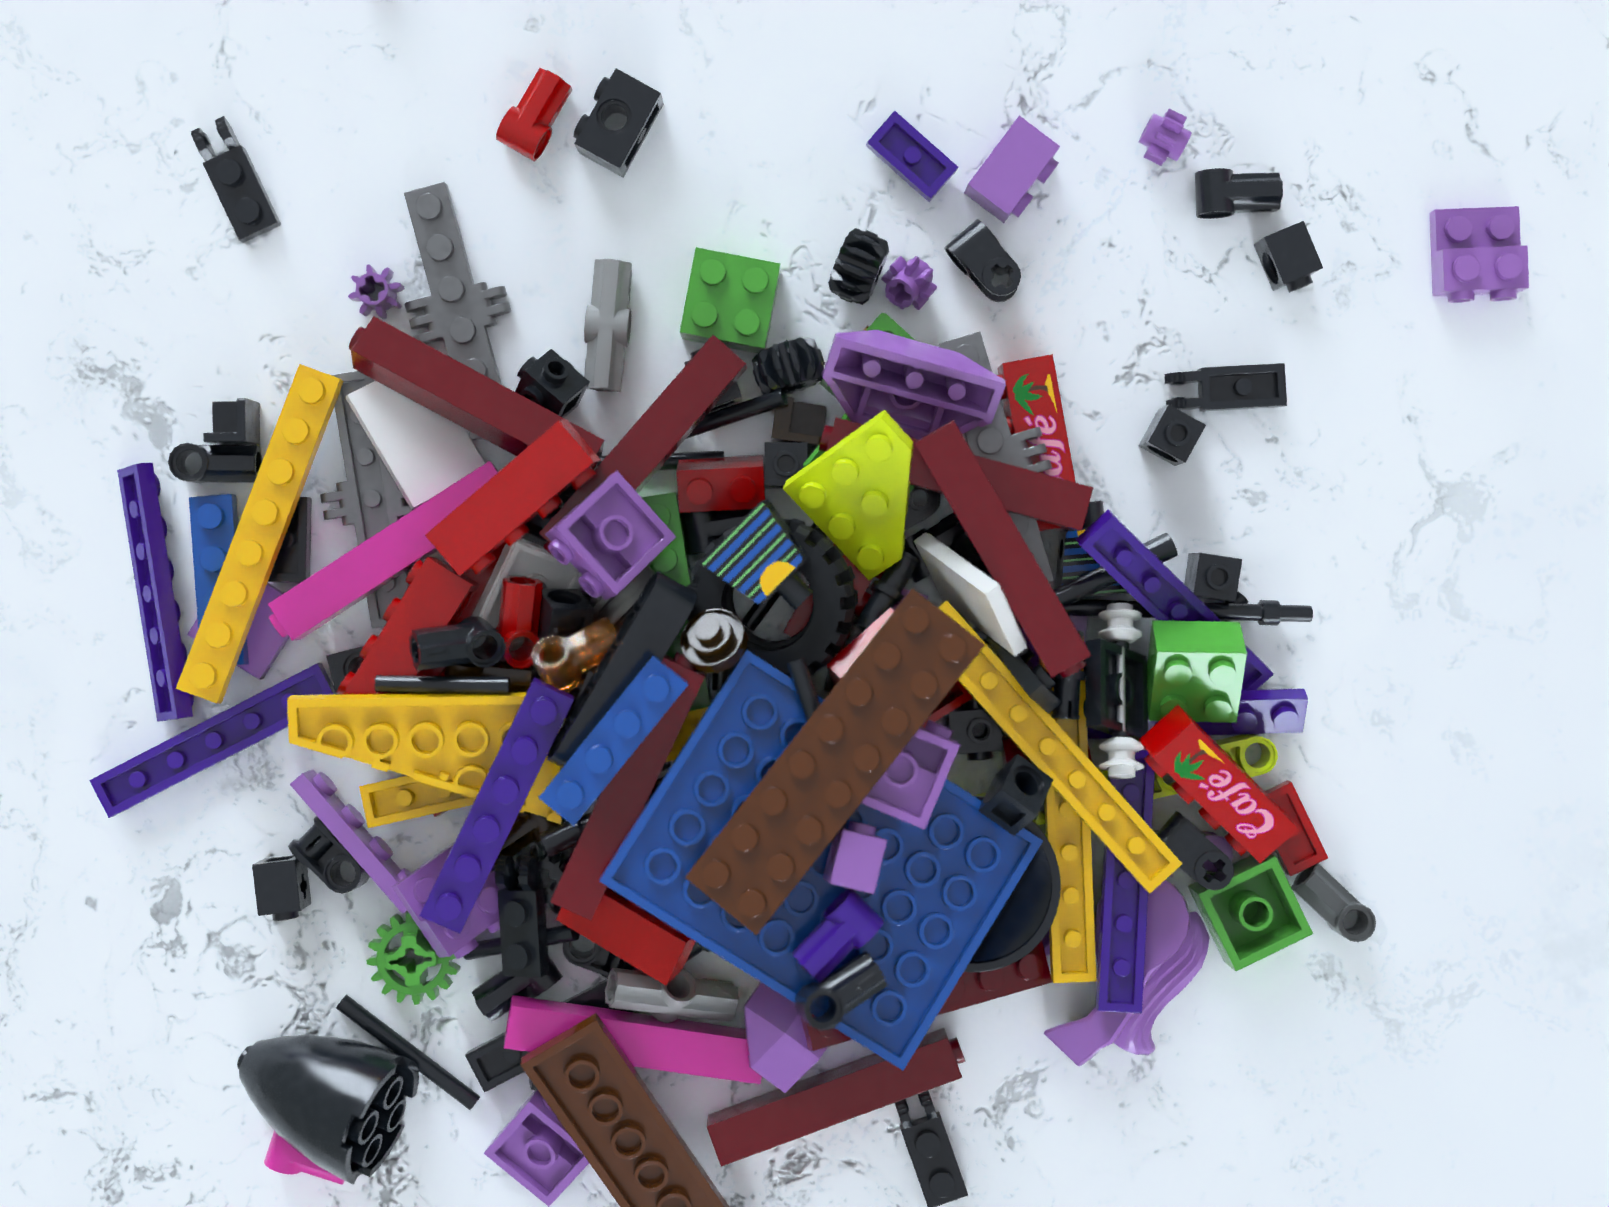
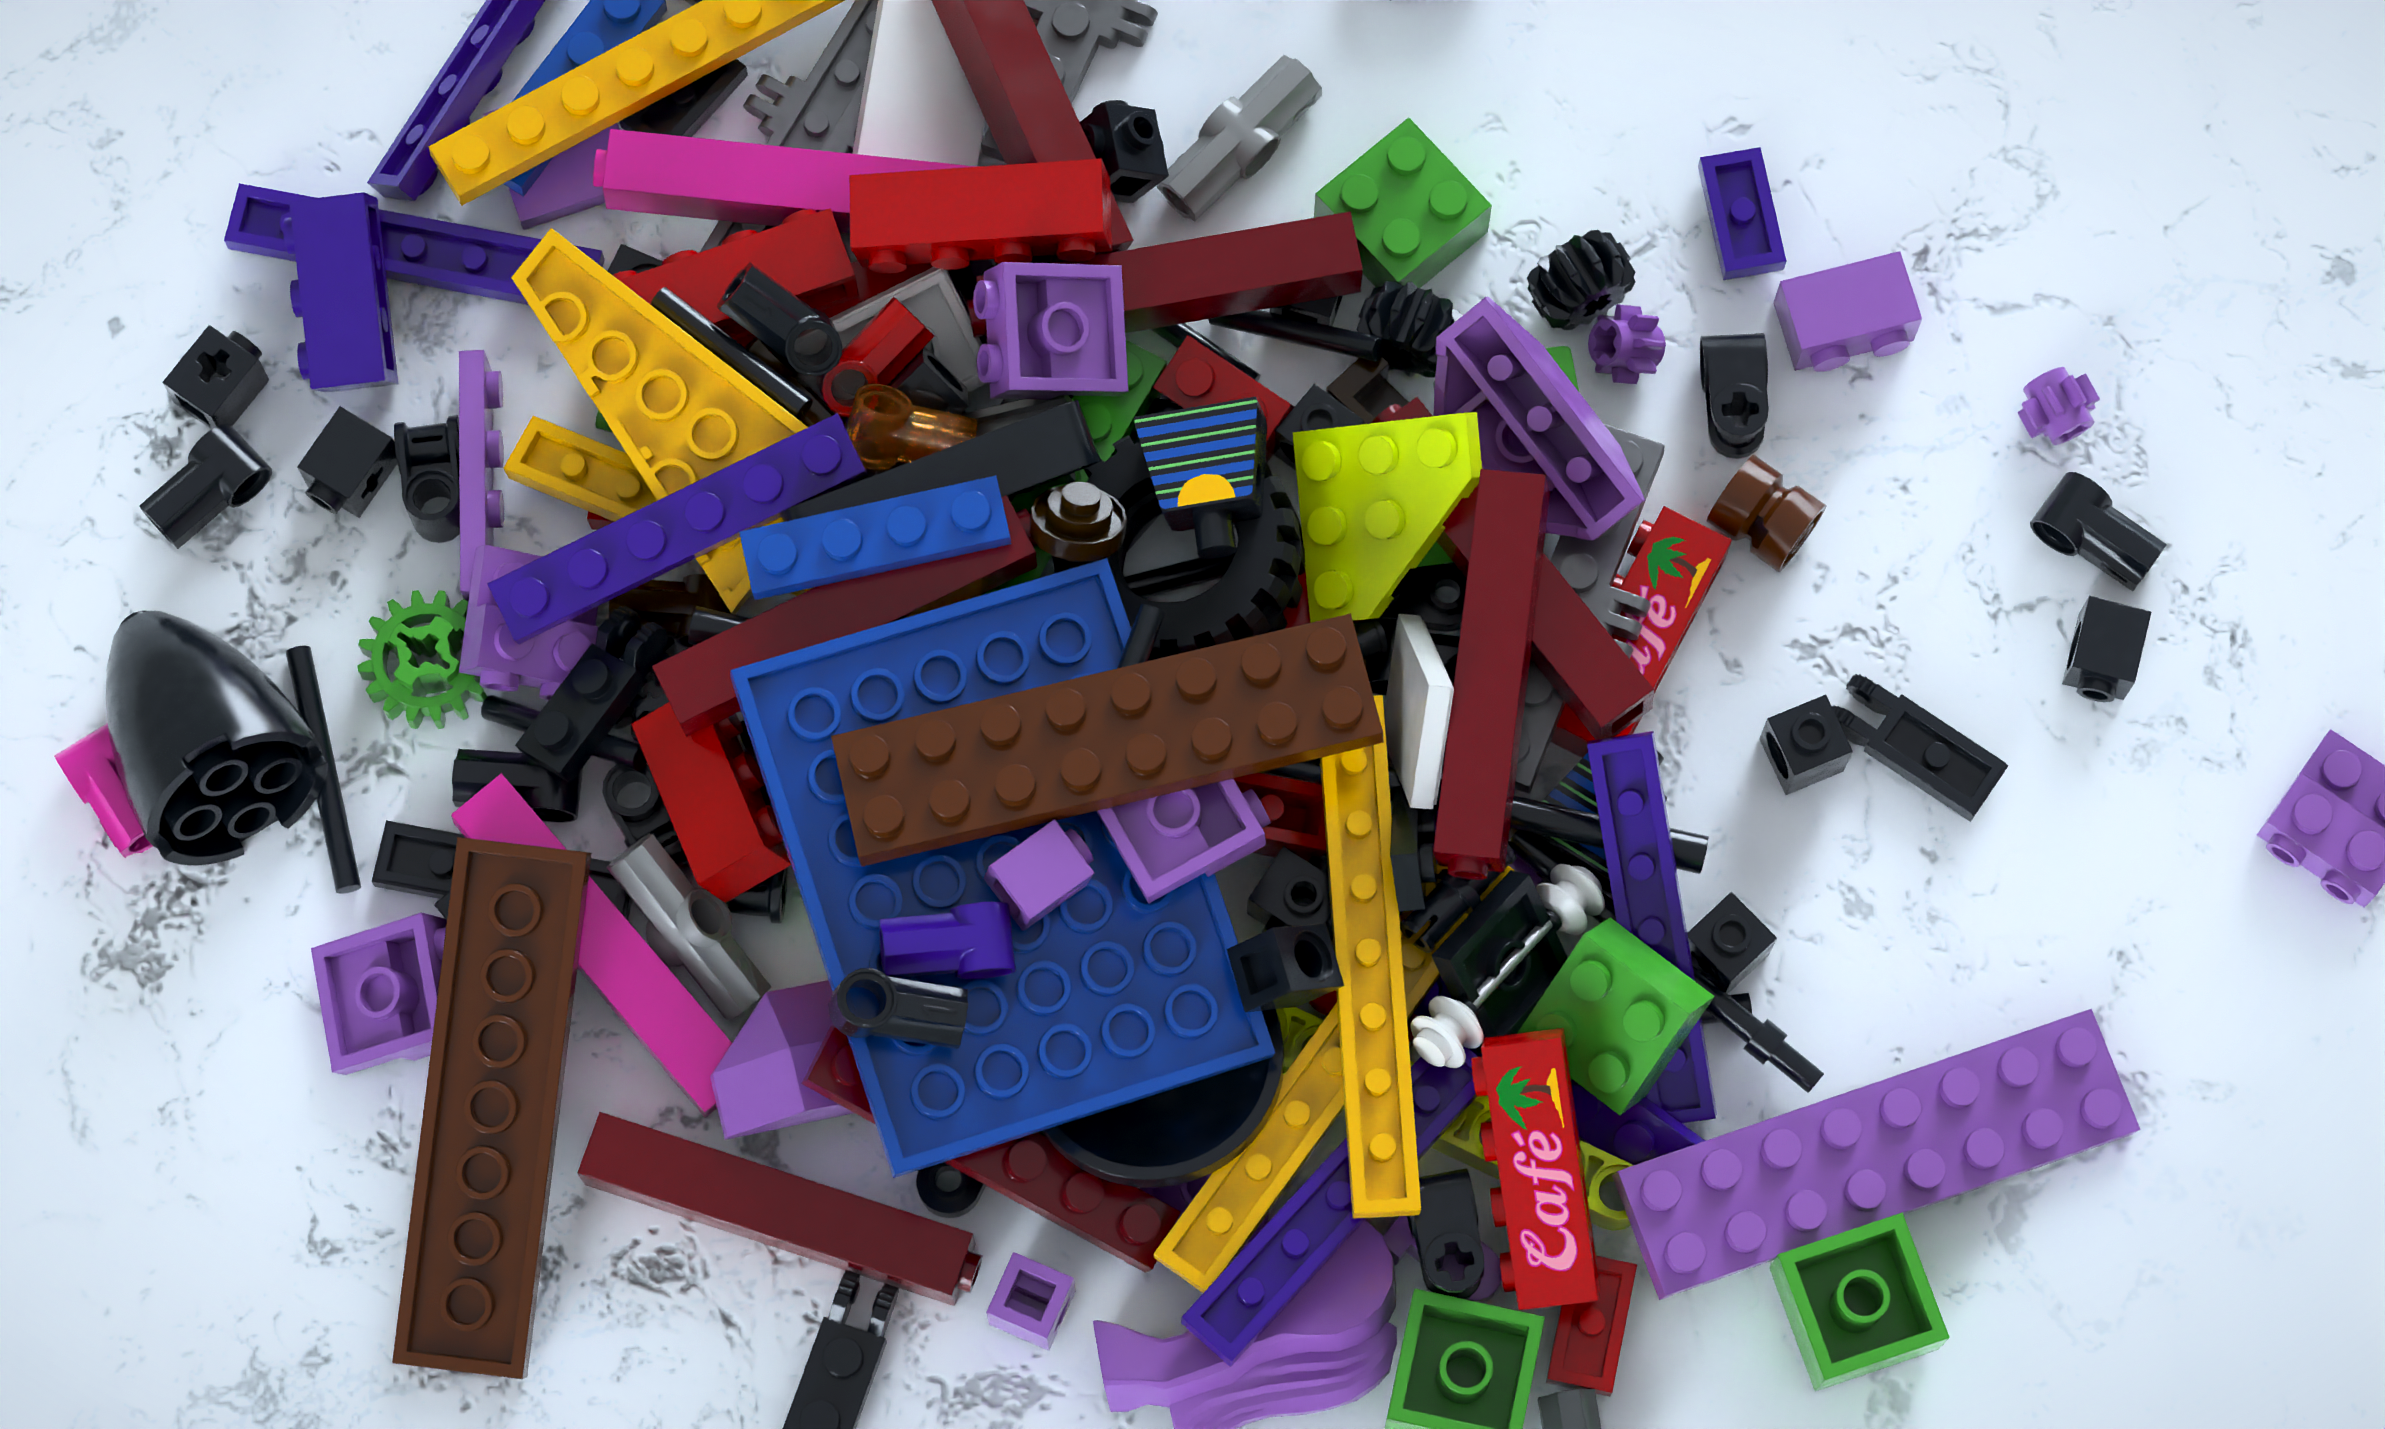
camera: 40 degrees right, 15 degrees down
(163, 908) = (217, 399): none -> black brick
(198, 801) = (341, 292): none -> dark purple brick
(217, 945) = (218, 475): none -> black piece
(1003, 1046) = (1031, 1301): none -> medium lavender brick
(1056, 321) = (1766, 513): none -> reddish brown wheel
(1371, 630) = (1875, 1153): none -> medium lavender plate
(1421, 715) = (1858, 1302): none -> bright green brick

